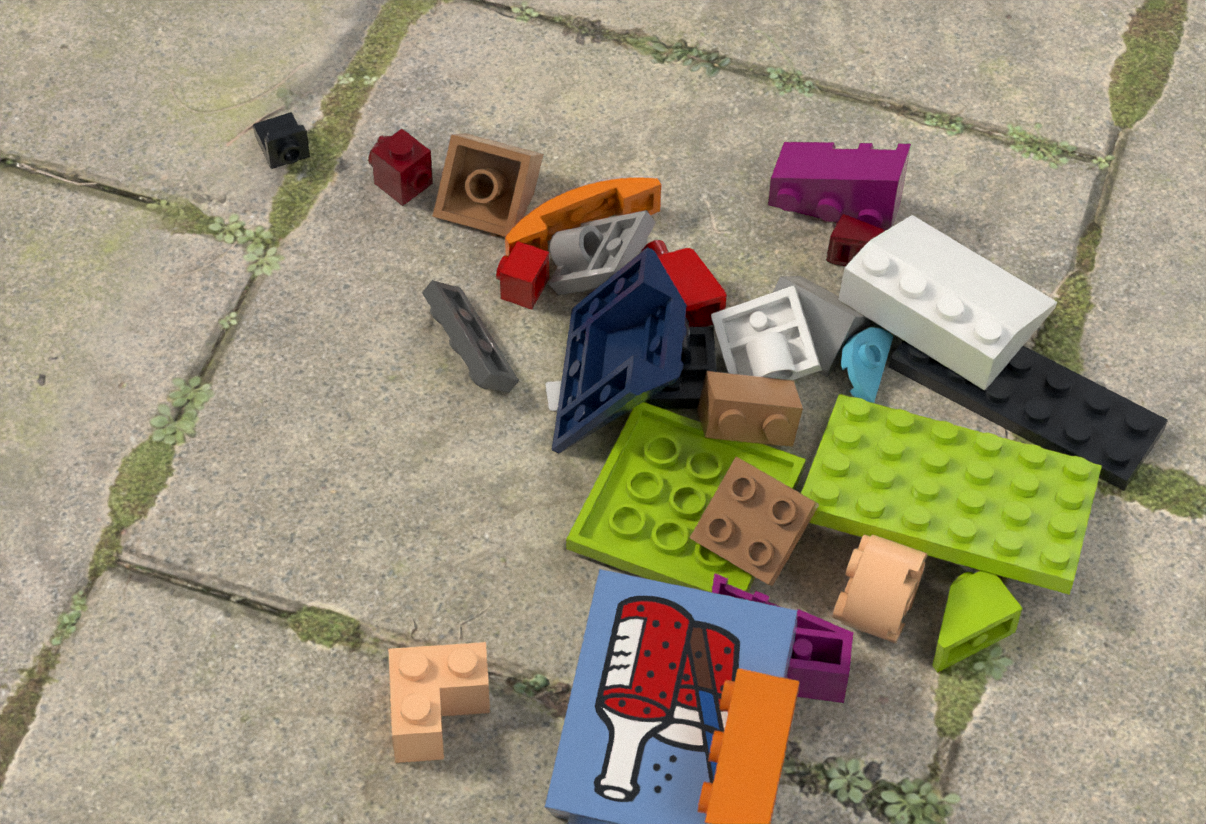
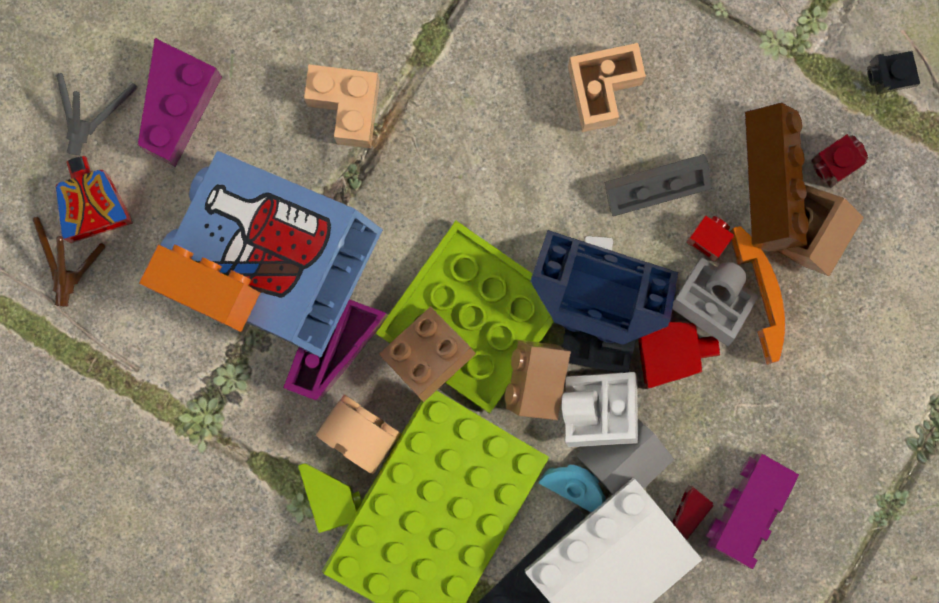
camera: 105 degrees right, 30 degrees up
(351, 412) = (597, 76): none -> light nougat brick
(437, 210) = (776, 177): none -> reddish brown brick

